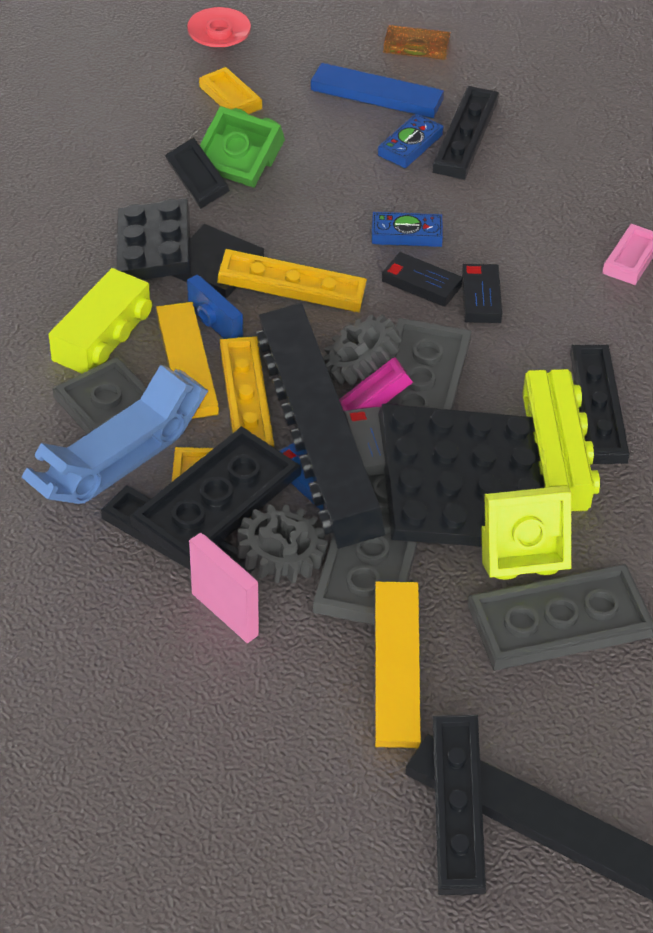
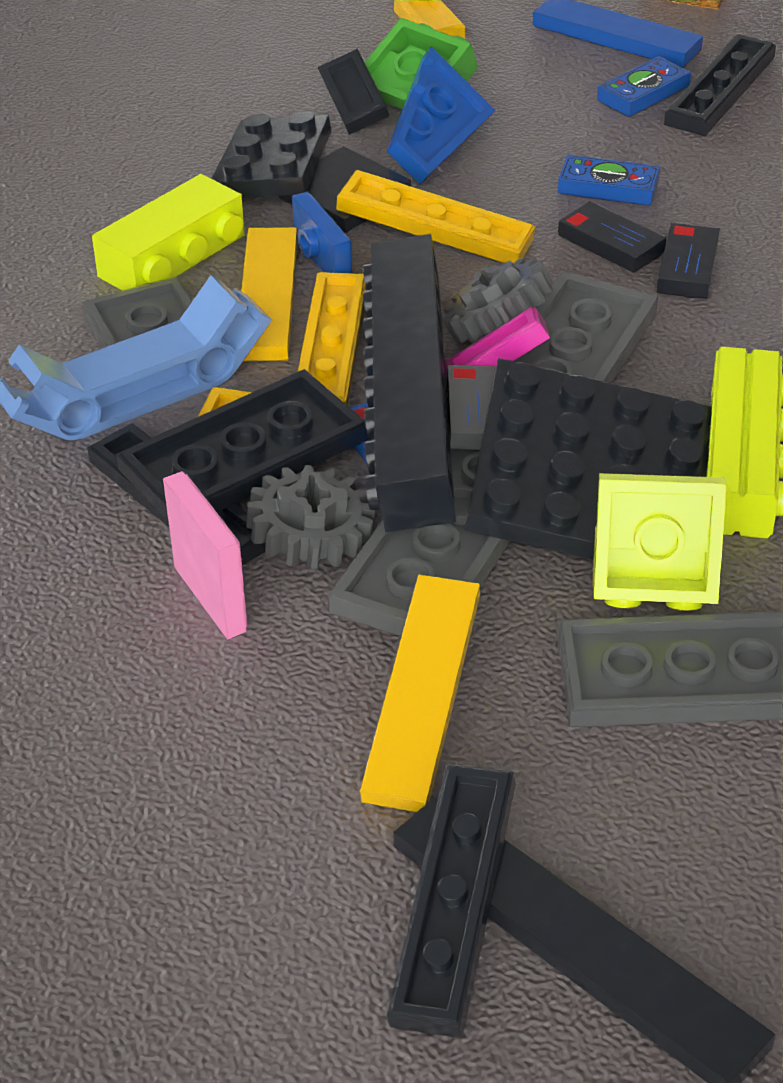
camera: 15 degrees right, 5 degrees down
(269, 191) = (436, 117): none -> blue wing

